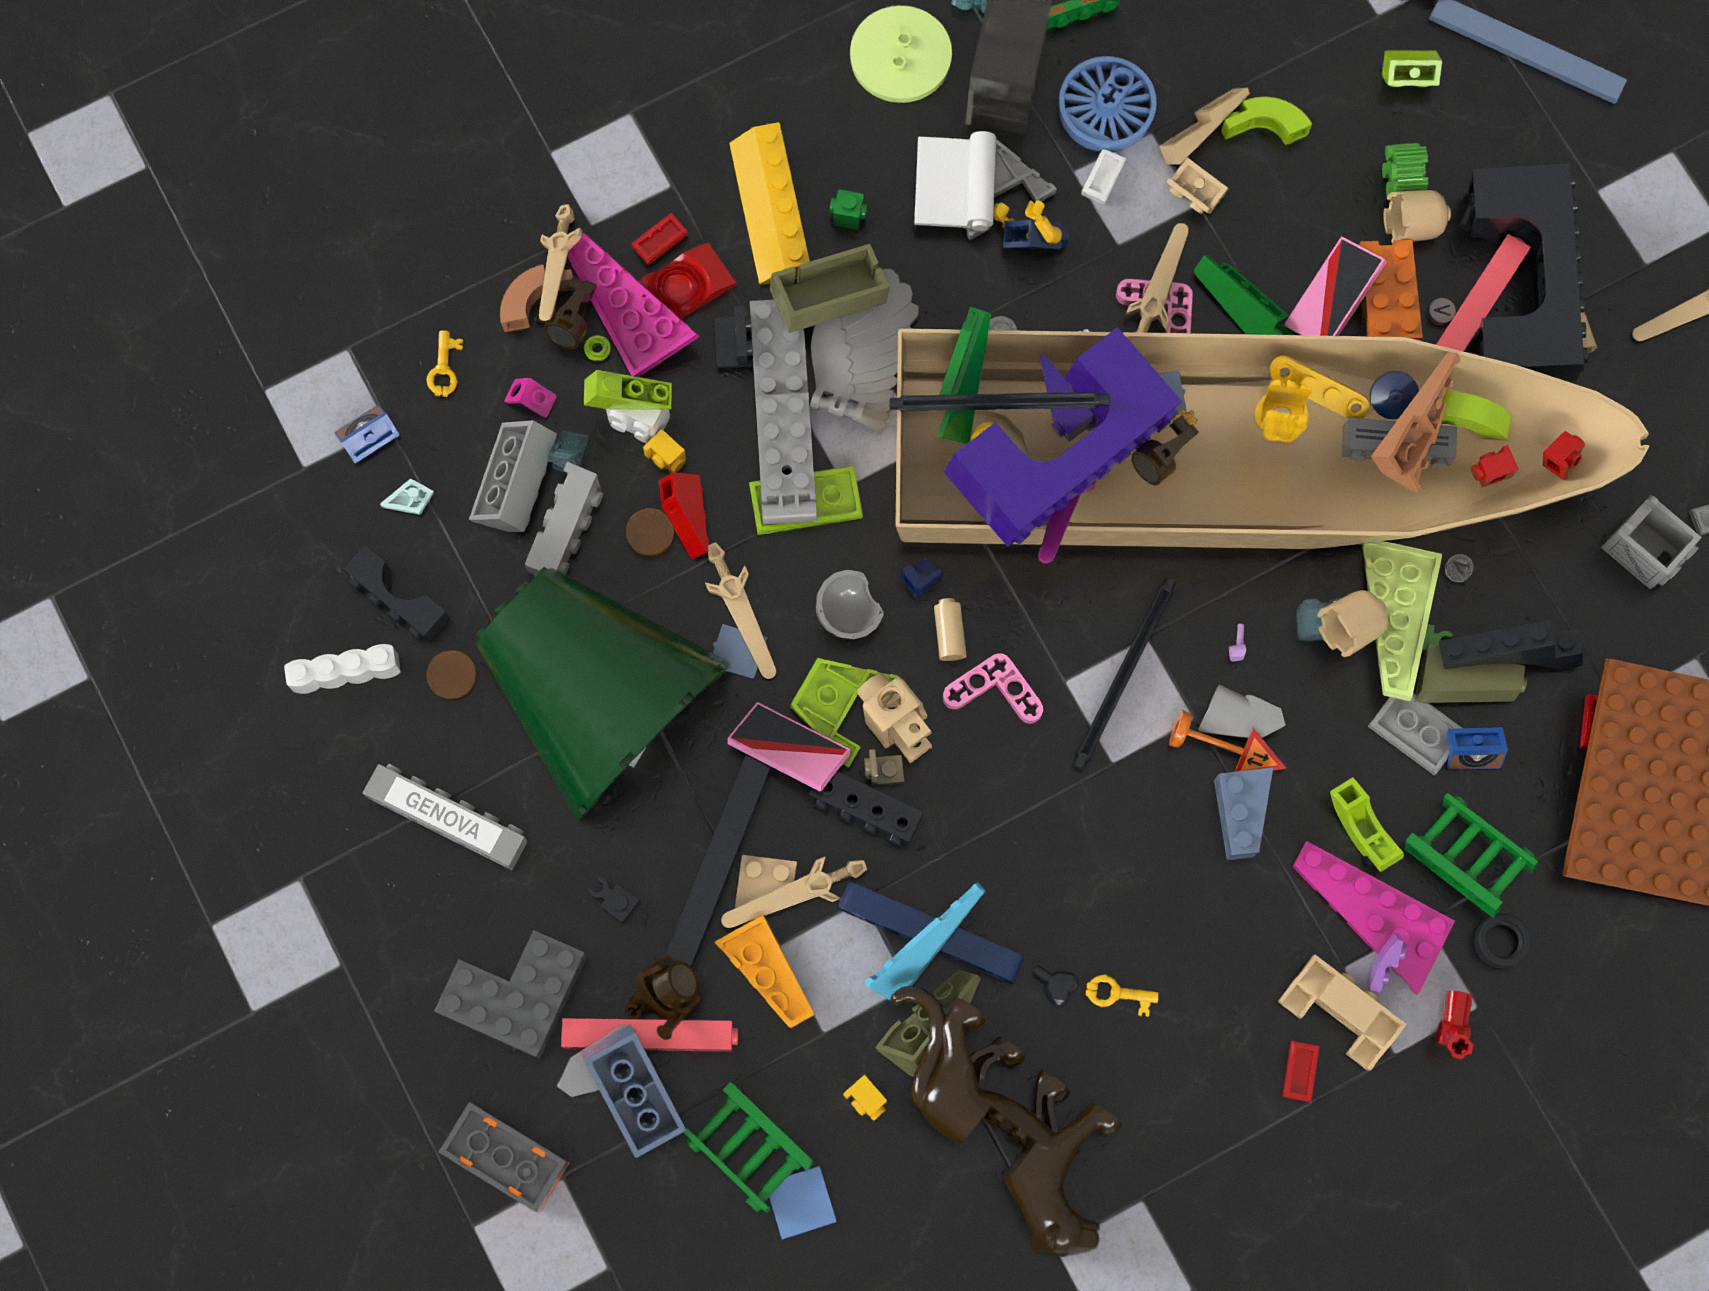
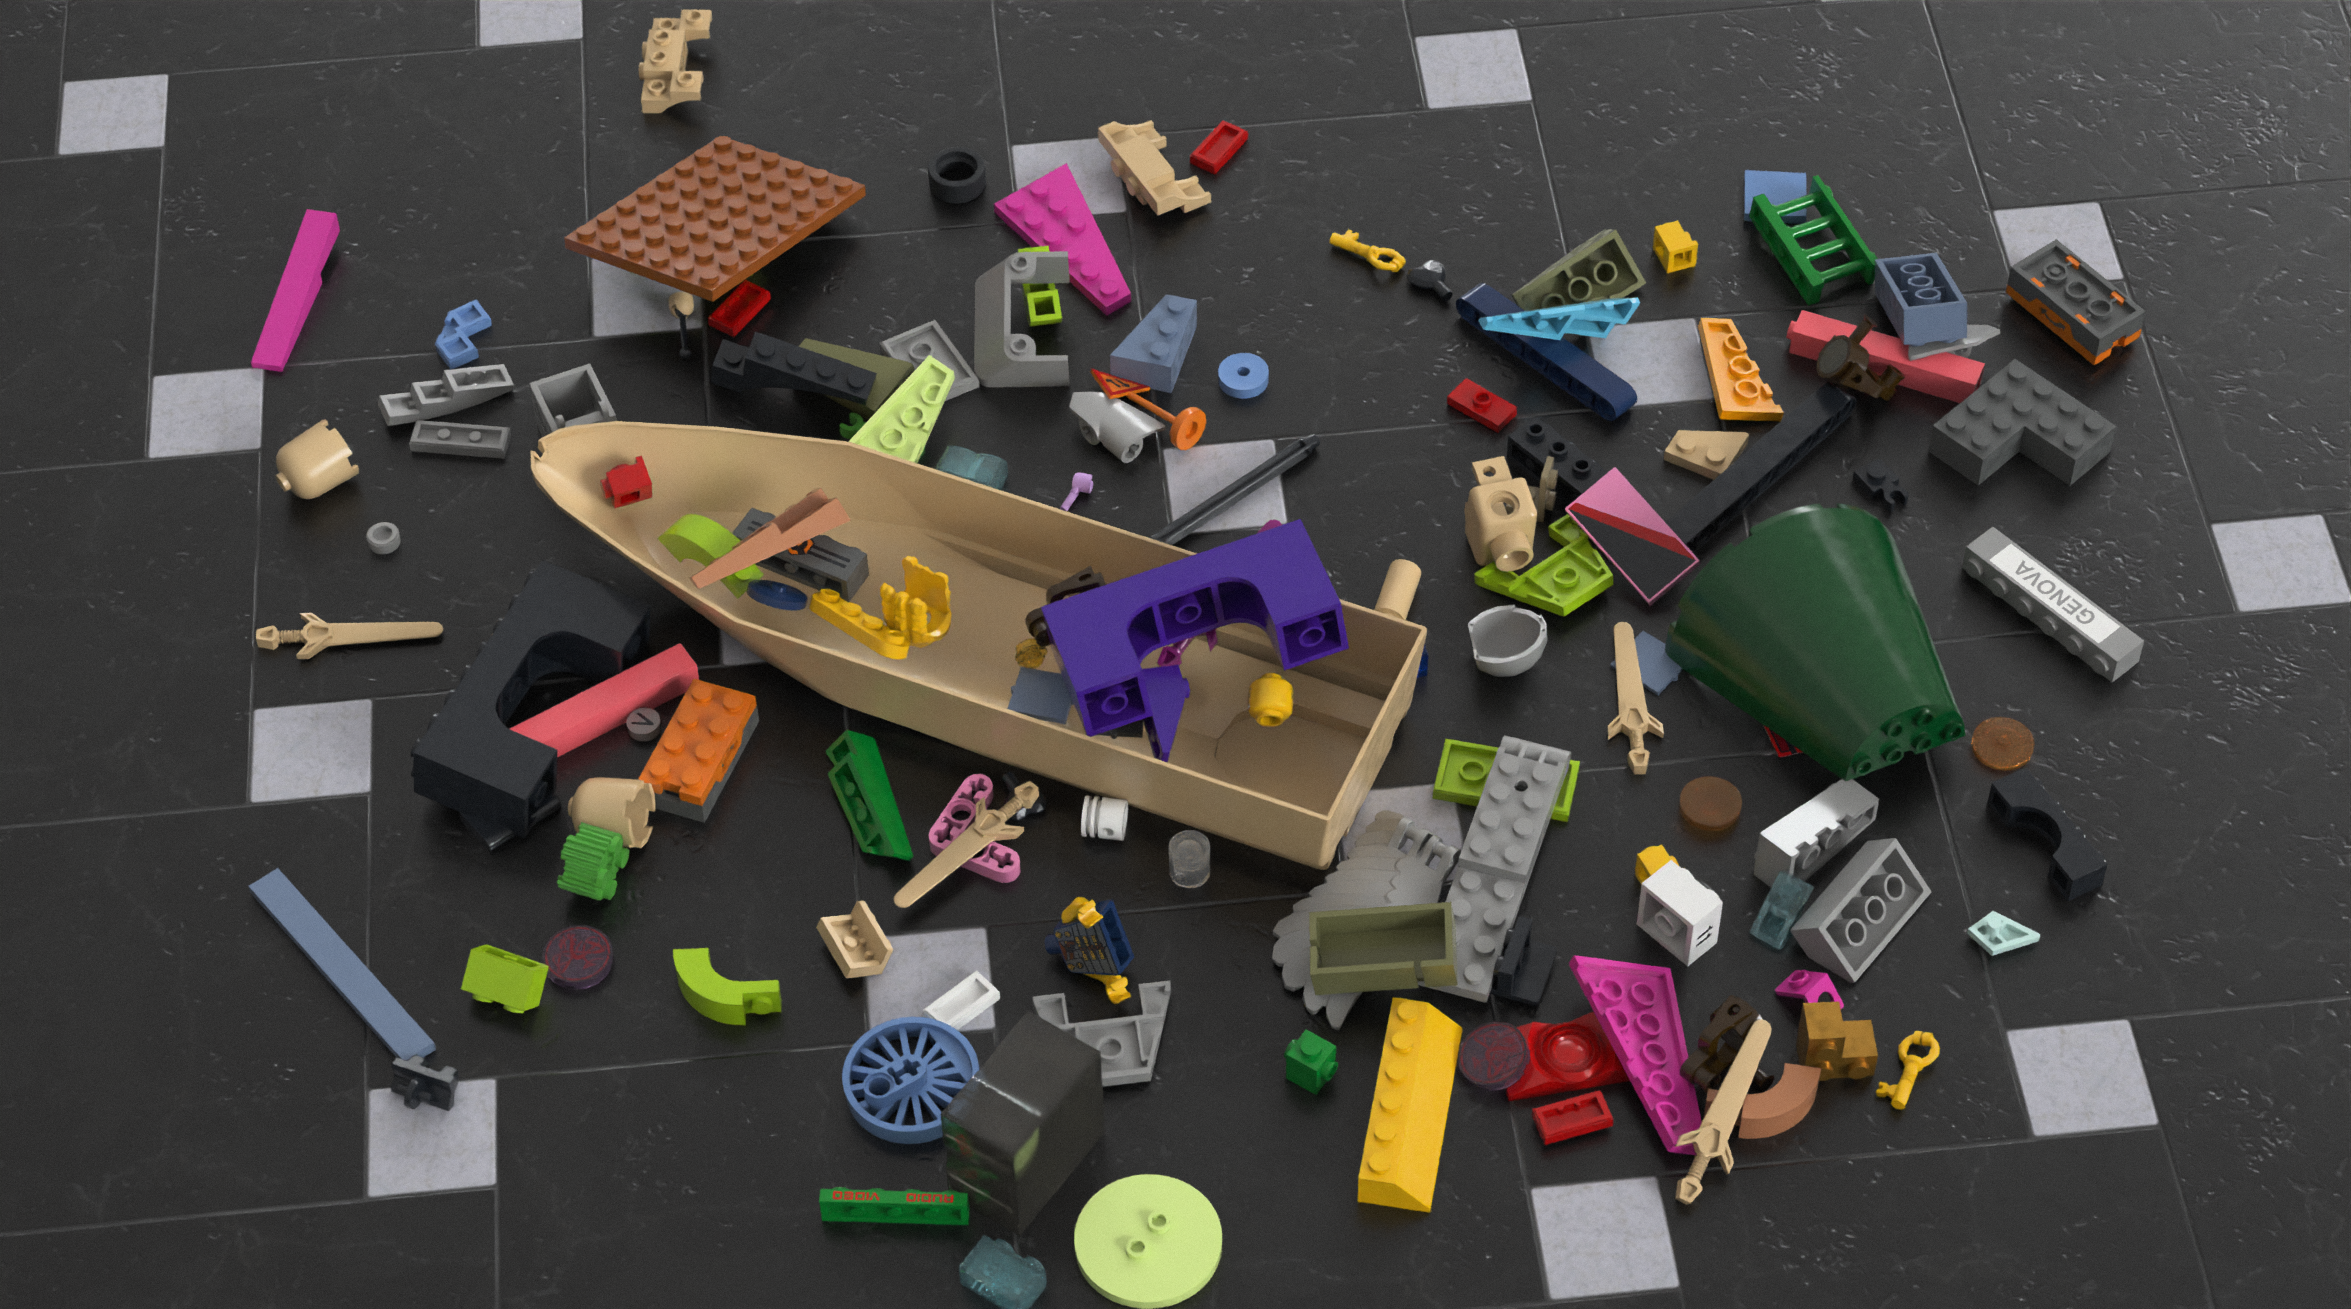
camera: 155 degrees left, 25 degrees down
(334, 671) = (2126, 774): white brick -> none
(367, 433) = (2037, 1023): panel -> none
(499, 351) = (1835, 1044): none -> pearl gold brick
(594, 341) = (1697, 1013): lime plate -> none
(626, 392) = (1699, 892): lime slope -> none
(684, 507) = (1658, 806): red slope -> none
(728, 261) = (1494, 1056): none -> tile
(798, 891) = (1650, 427): tan sword -> none
(954, 1099) = (1579, 188): dark brown animal -> none
(956, 181) = (1159, 1039): white door -> none
(961, 858) = (1482, 405): none -> red plate
(965, 374) = (1277, 758): green wedge -> none
(1000, 401) = (1253, 678): black piece -> none
(1002, 680) = (1361, 541): bright pink beam -> none
(1169, 804) = (1239, 386): none -> medium blue piece
(1209, 118) = (801, 1008): tan slope -> none
(1336, 291) = (763, 759): tile -> none
(1353, 621) = (947, 431): tan cylinder -> none
(1376, 114) = (578, 956): none -> tile
(1389, 955) = (1086, 185): medium lavender slope -> none
(1394, 801) = (1011, 358): none -> light grey windscreen
(1454, 1028) = (1050, 121): red piece -> none
(1466, 881) = (966, 214): green fence -> none
(1476, 748) = (880, 321): blue panel -> none
(1495, 467) = (711, 497): red brick -> none

